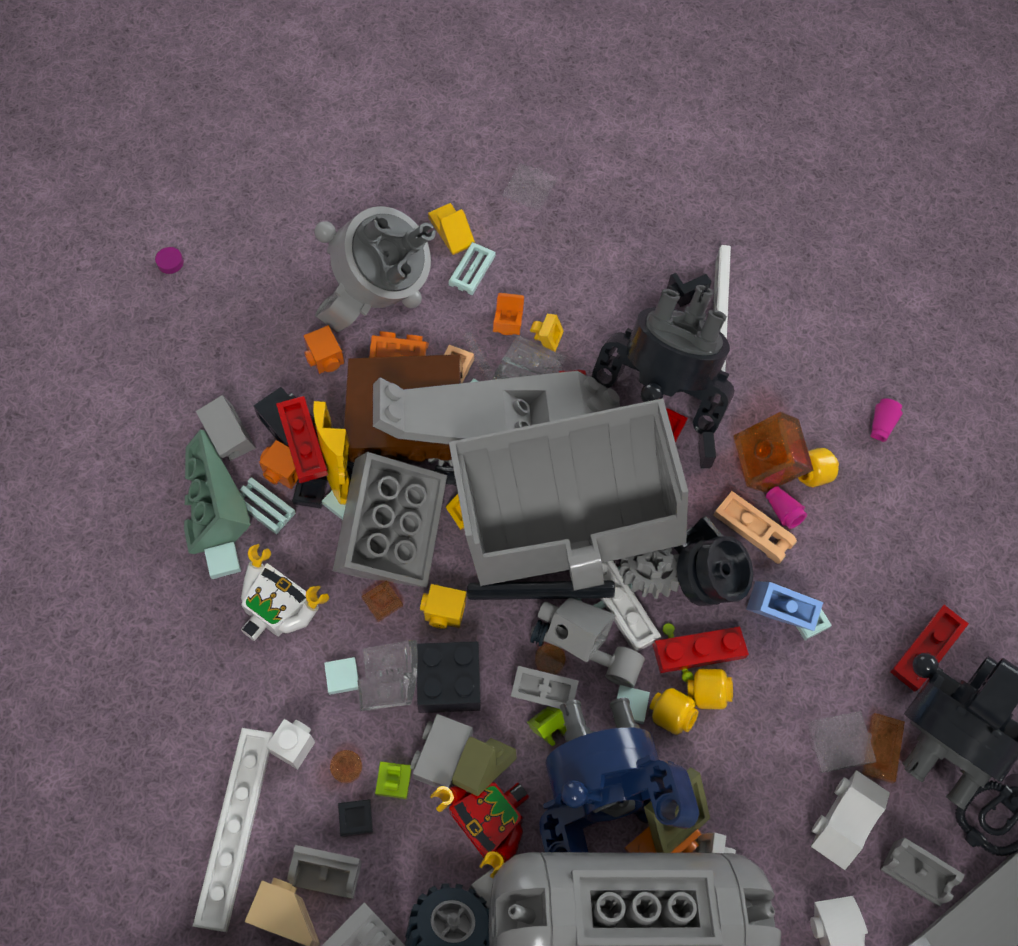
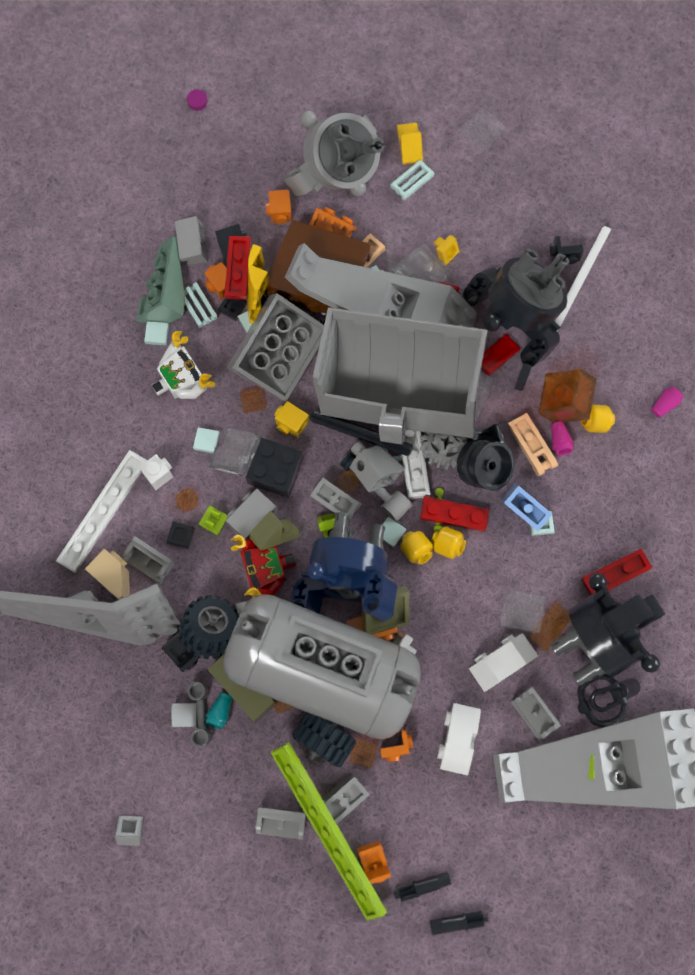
camera: 25 degrees right, 10 degrees up
(508, 314) = (423, 225): orange bracket -> none

